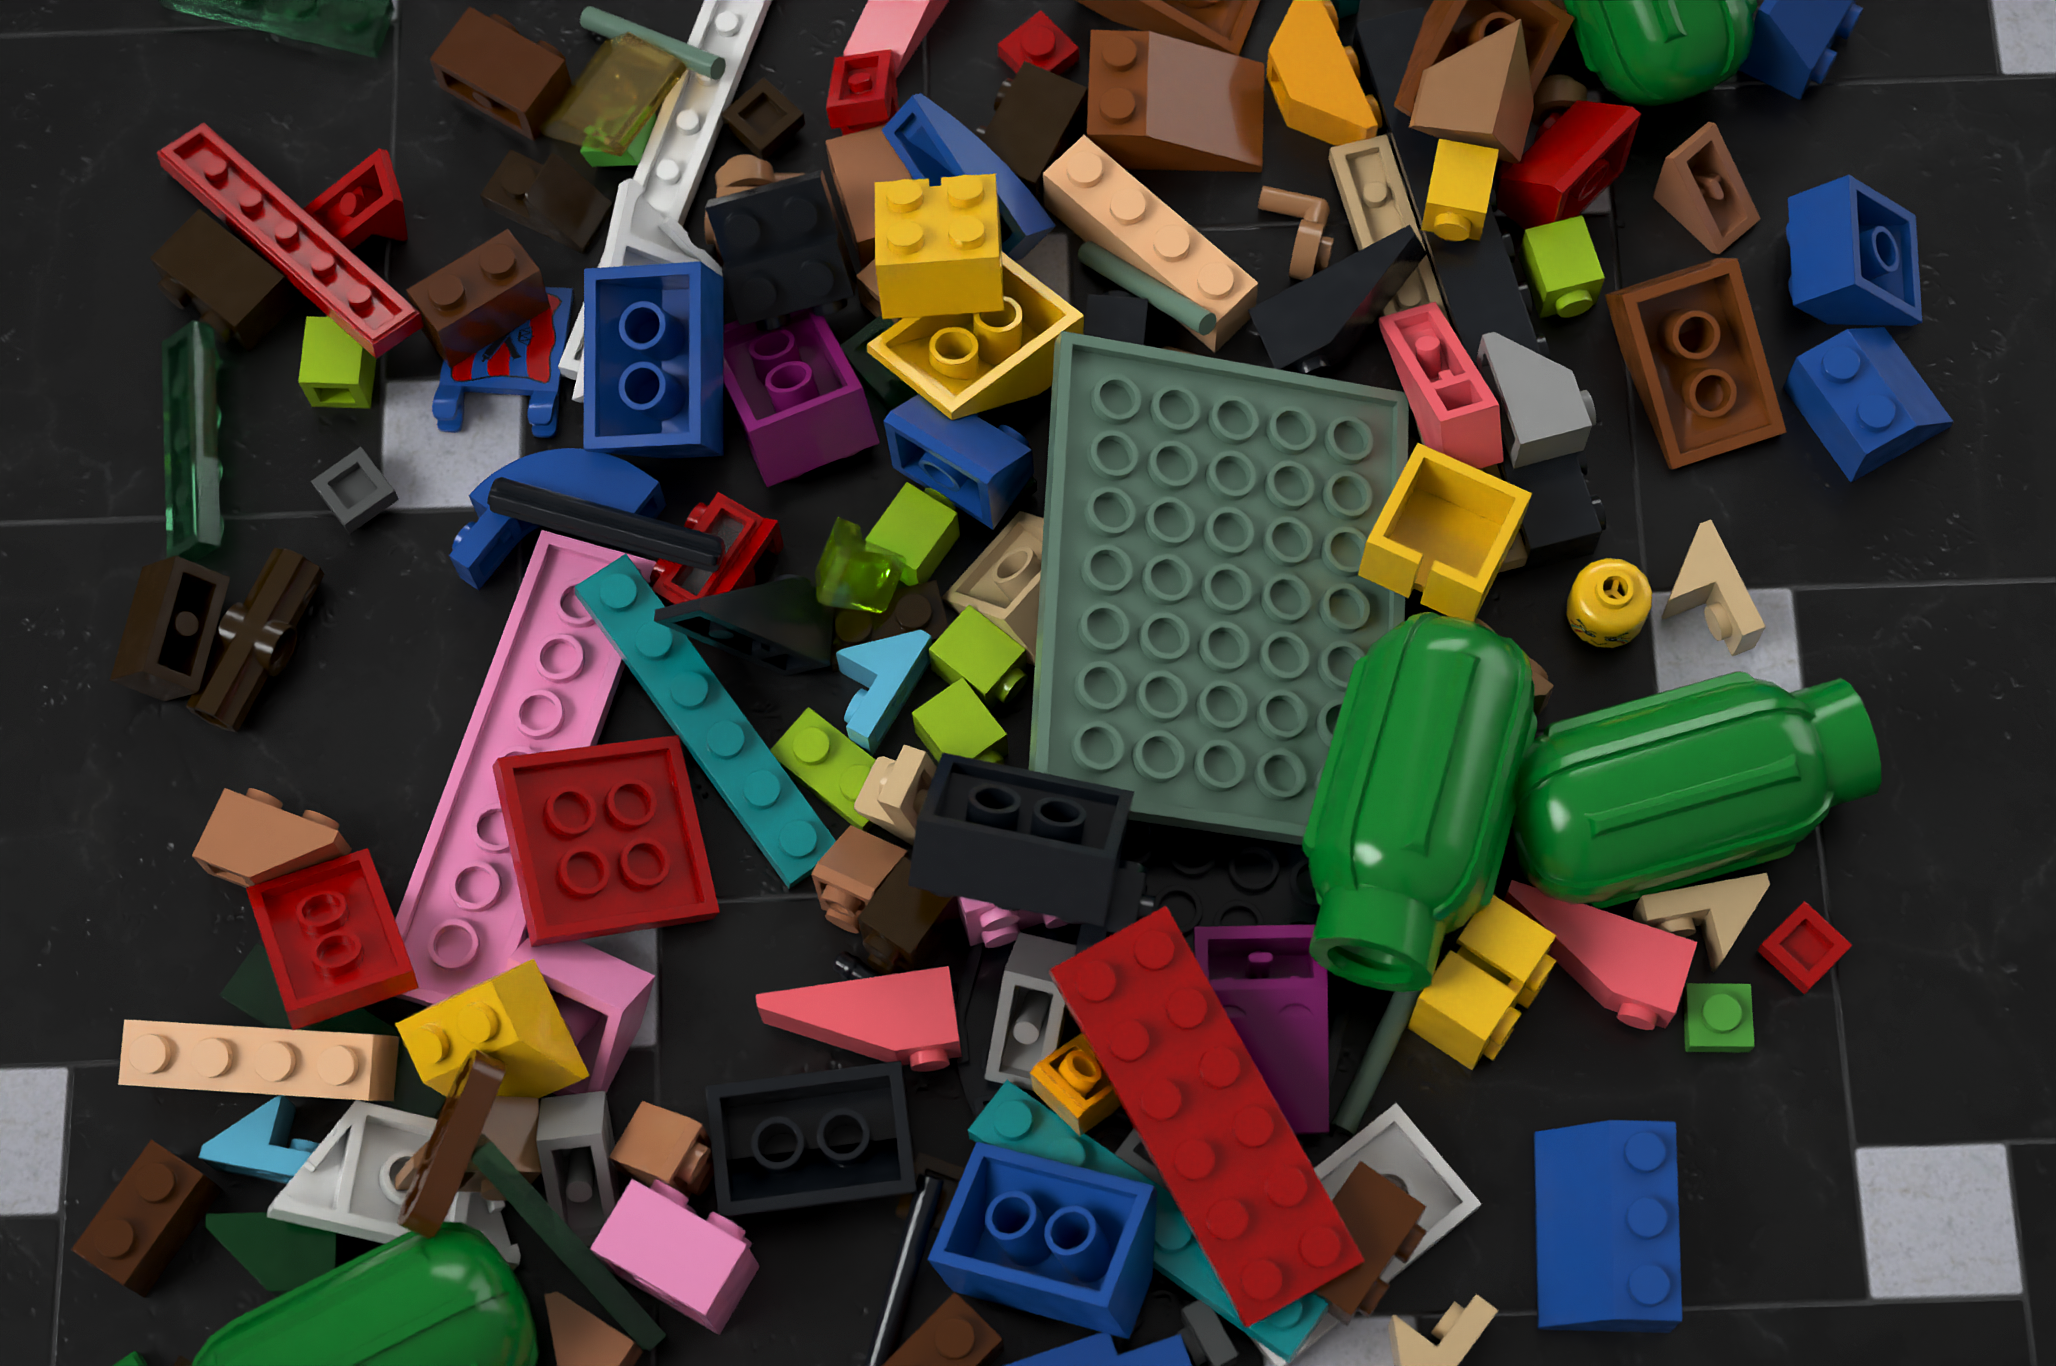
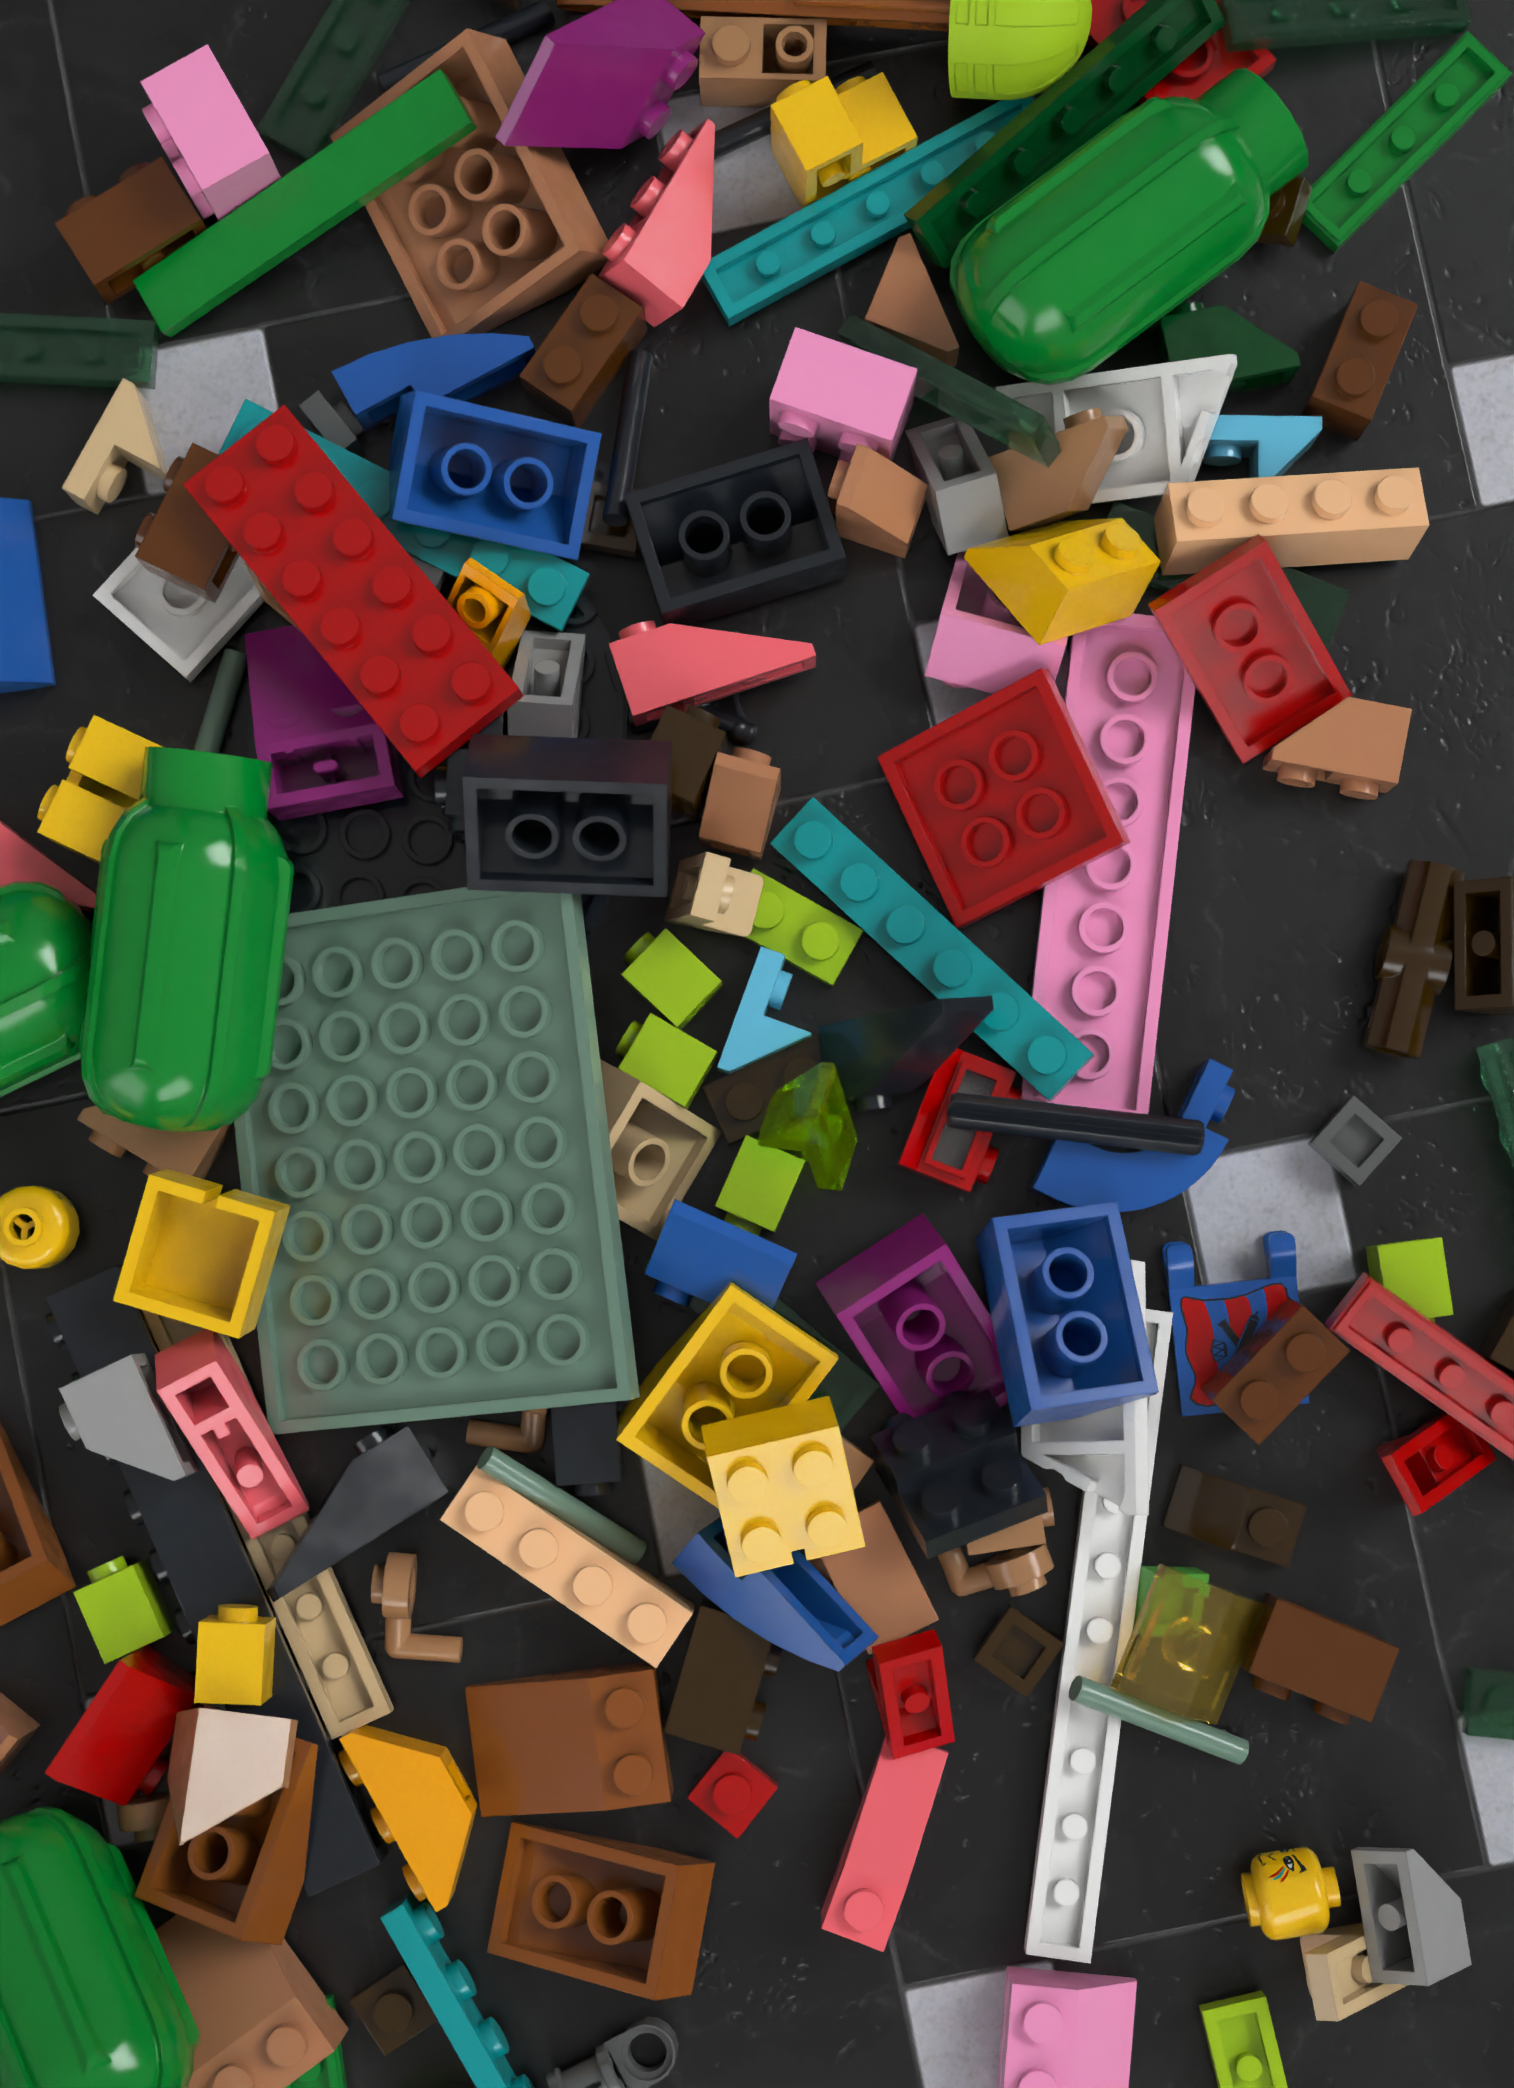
camera: 175 degrees right, 15 degrees up
(451, 1144) = (1070, 438): reddish brown beam -> none

